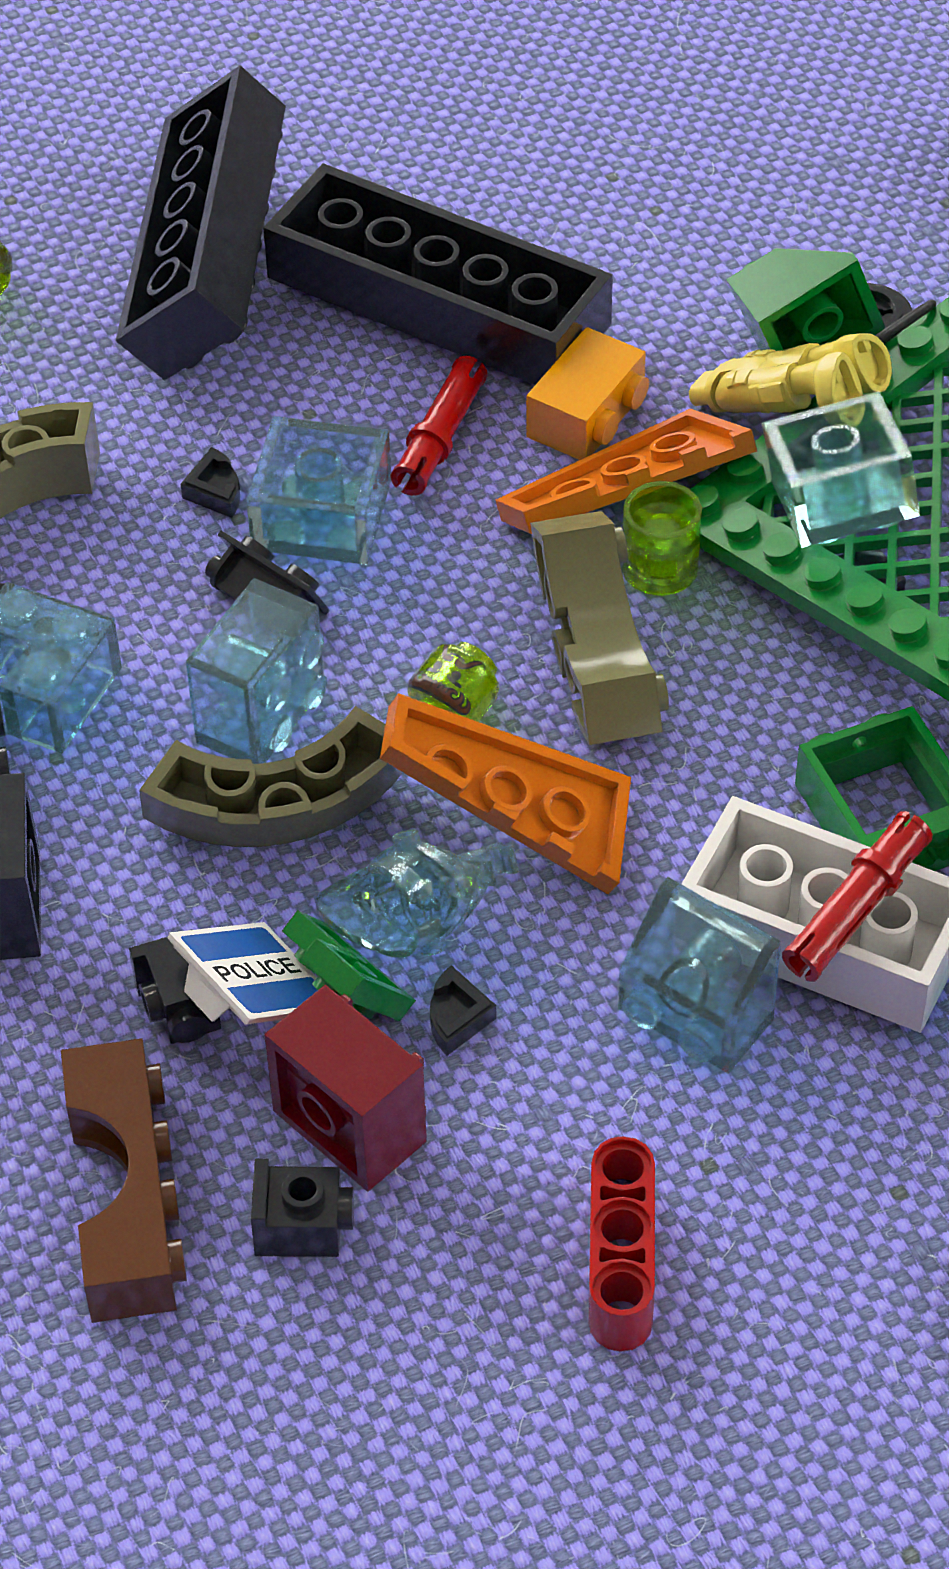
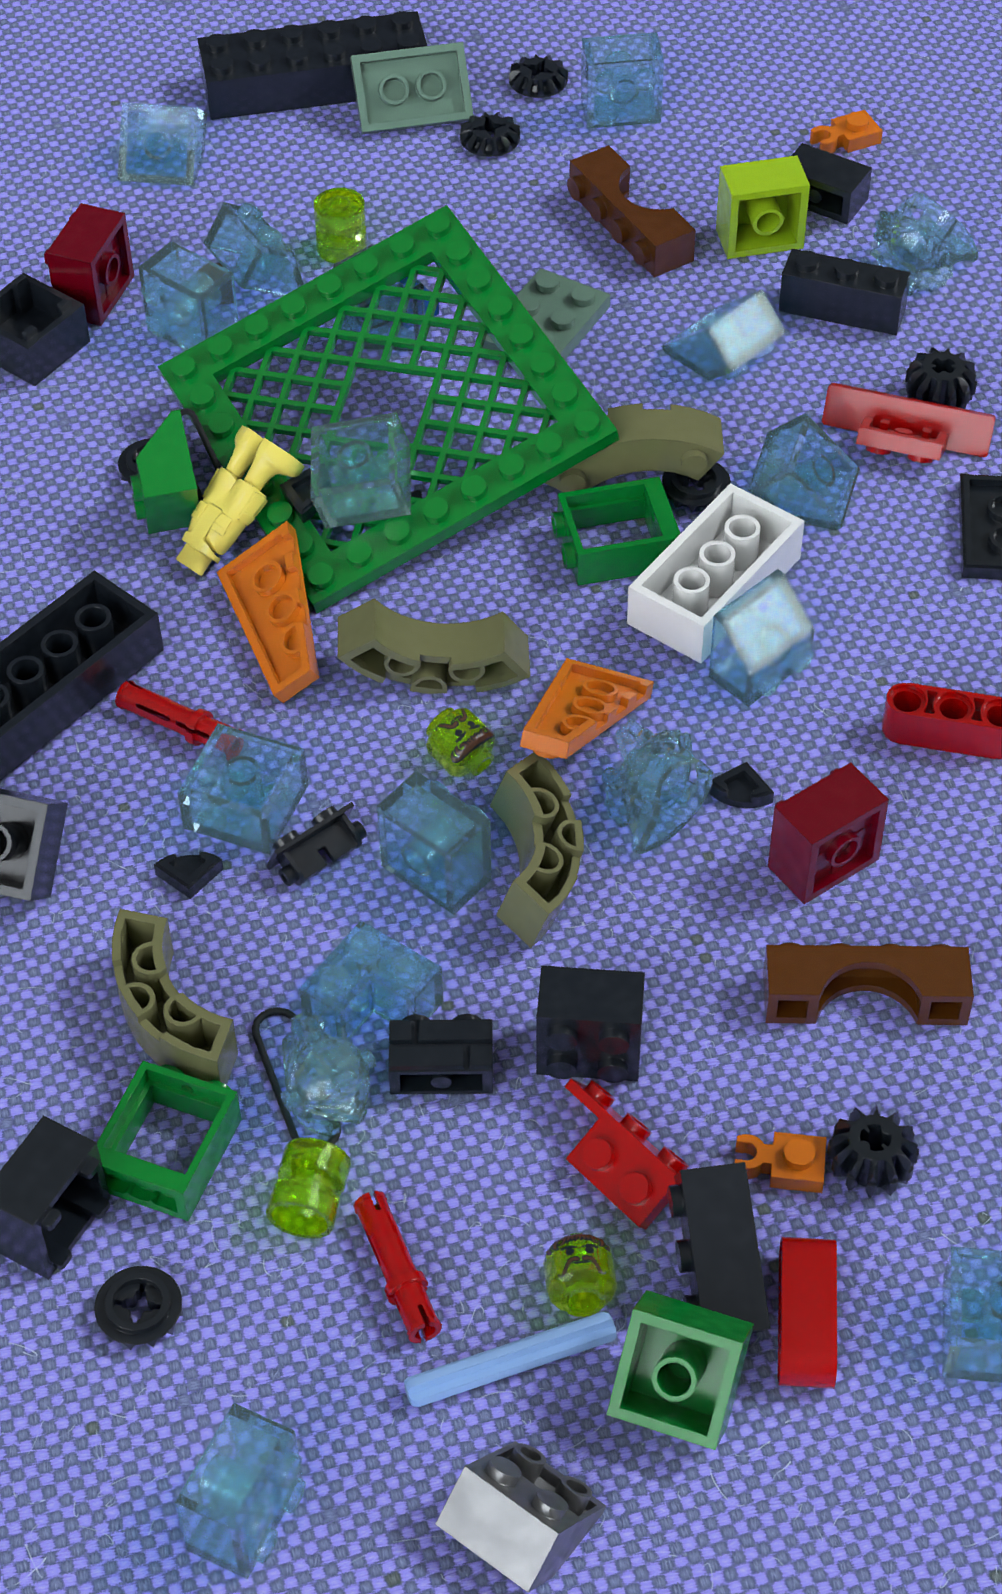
camera: 80 degrees left, 0 degrees up
(160, 982) = (706, 932): black brick -> none
(243, 971) = (724, 876): piece -> none
(299, 1210) = (904, 877): black brick -> none
(345, 969) = (724, 826): green plate -> none
(586, 394) = (191, 627): light orange brick -> none
(661, 537) = (347, 587): clear neon green wheel -> none
(873, 877) = (725, 520): red pin -> none

